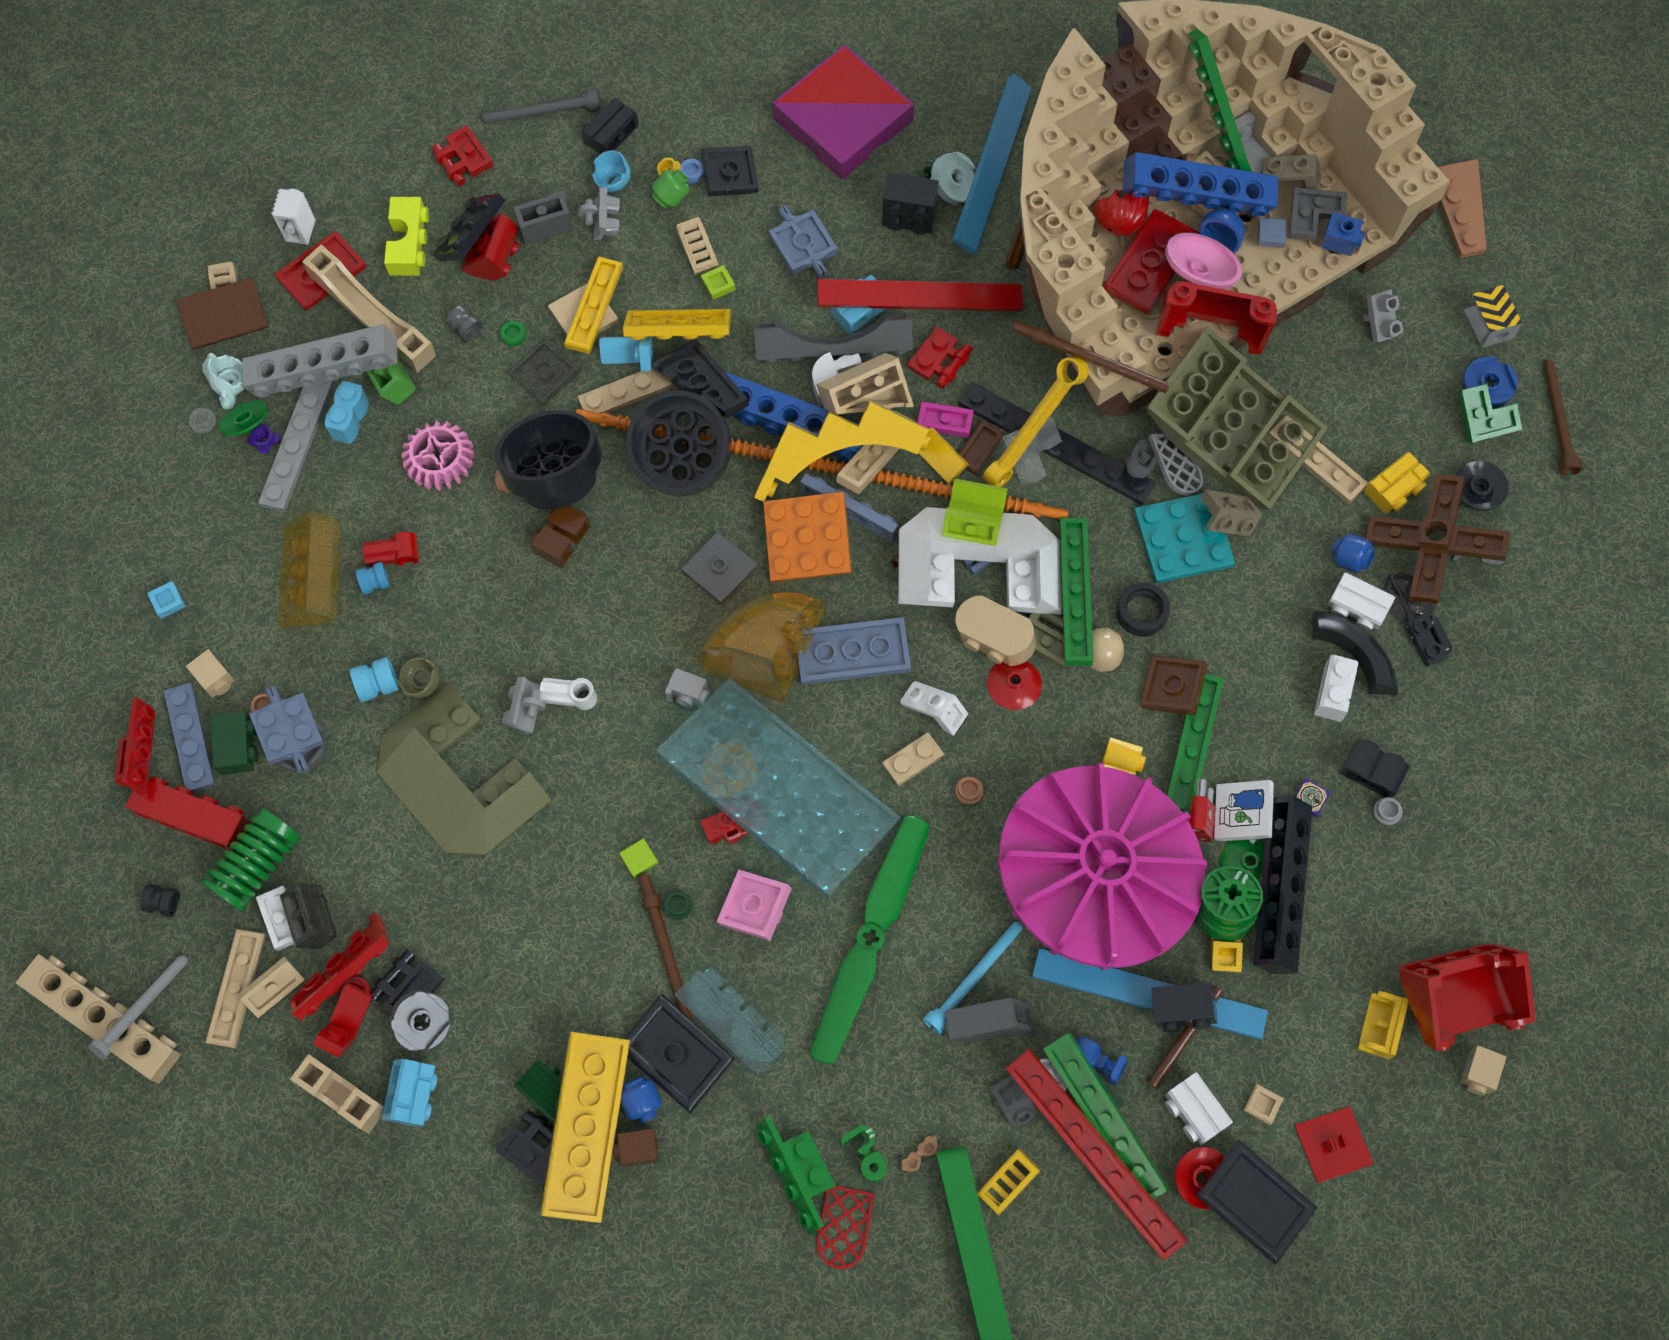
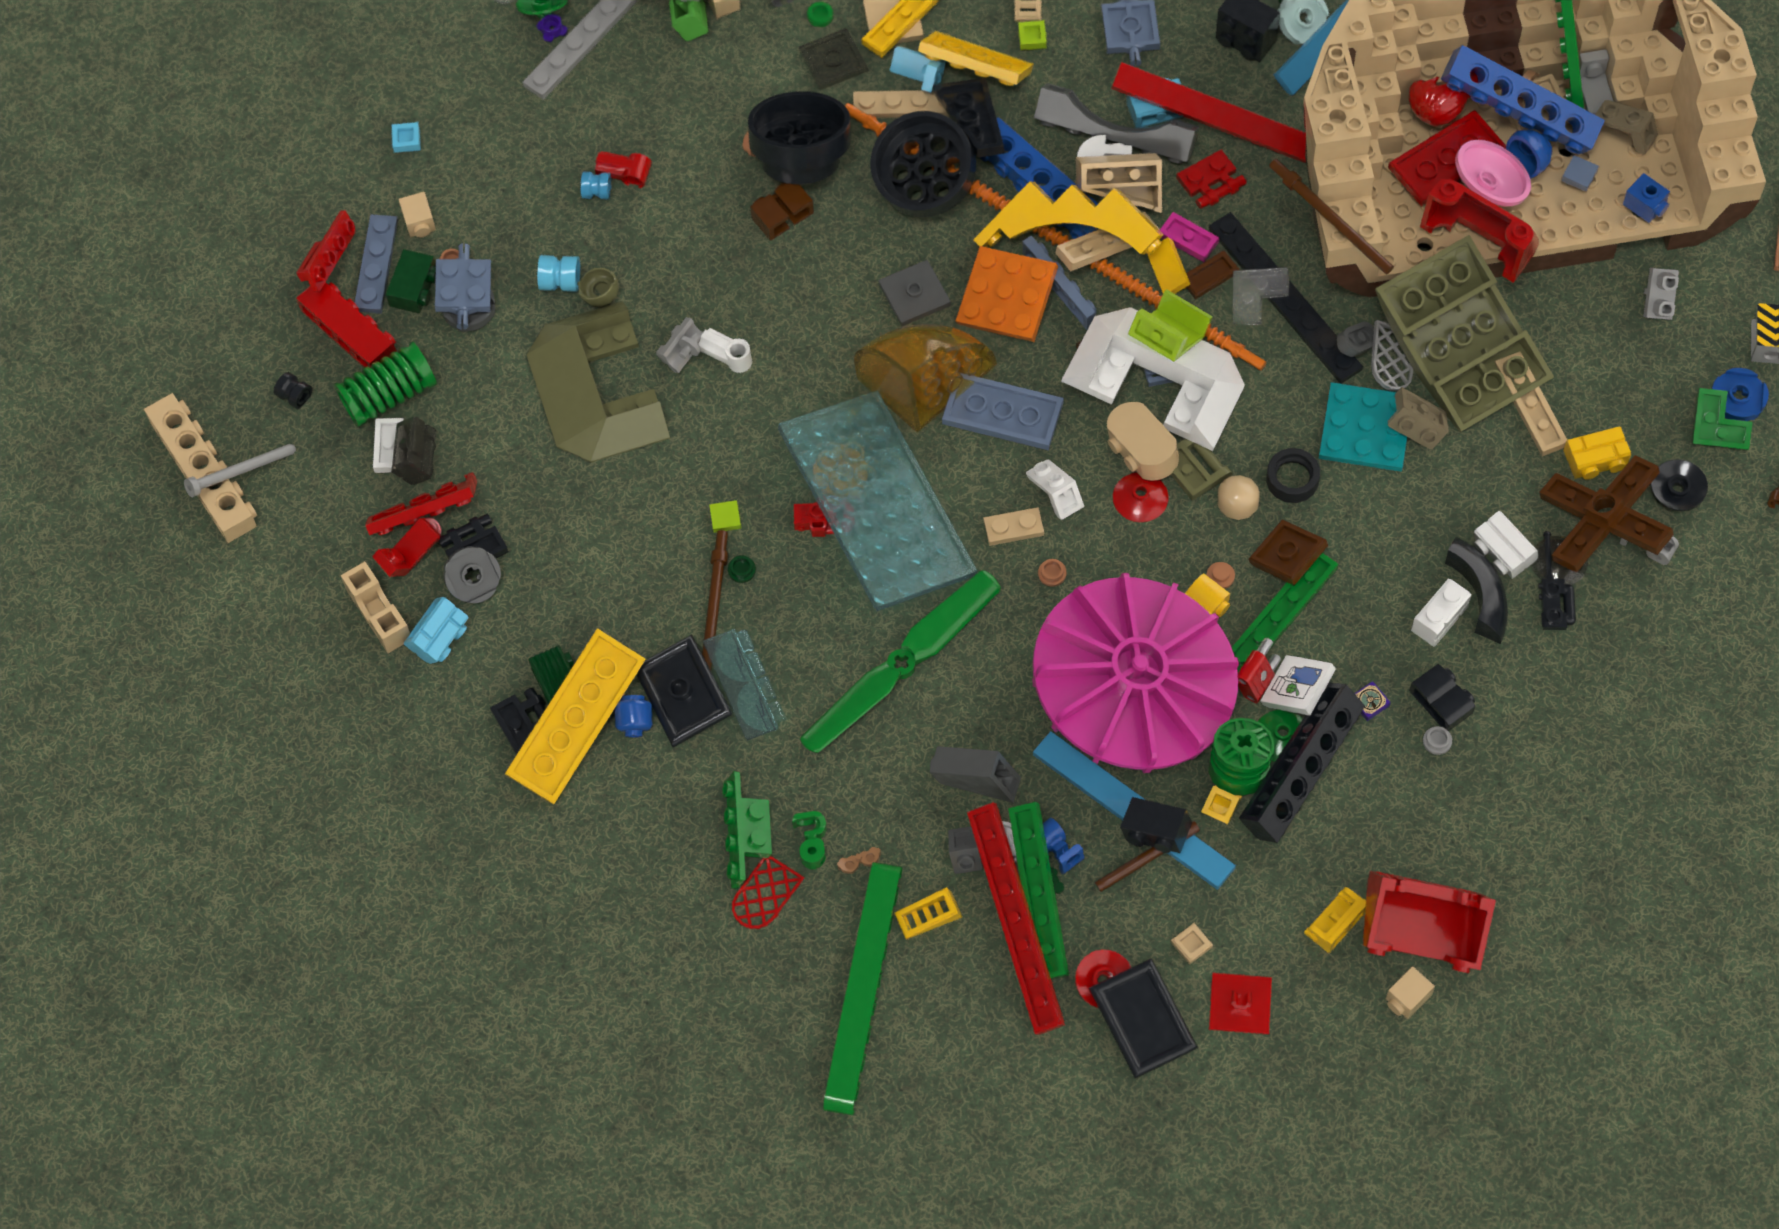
camera: 25 degrees right, 5 degrees down
(239, 974) = (326, 489): tan tile -> none
(271, 987) = (356, 499): tan plate -> none
(309, 571) = (542, 158): clear yellow slope -> none
(344, 416) = (636, 30): medium azure brick -> none
(416, 459) = (715, 104): bright pink gear -> none
(636, 1148) = (612, 754): reddish brown brick -> none
(687, 689) = (833, 385): light grey brick -> none
(754, 905) = (809, 593): bright pink hinge -> none
(938, 1016) = (927, 752): medium azure piece -> none
(1001, 470) = (1216, 301): yellow piece -> none
(1076, 592) = (1235, 434): green plate -> none
(1123, 730) = (1222, 574): none -> nougat plate
(1197, 1109) = (1128, 921): white brick -> none
(1309, 206) = (1629, 160): dark grey plate -> none
(1353, 553) = (1521, 499): blue head -> none

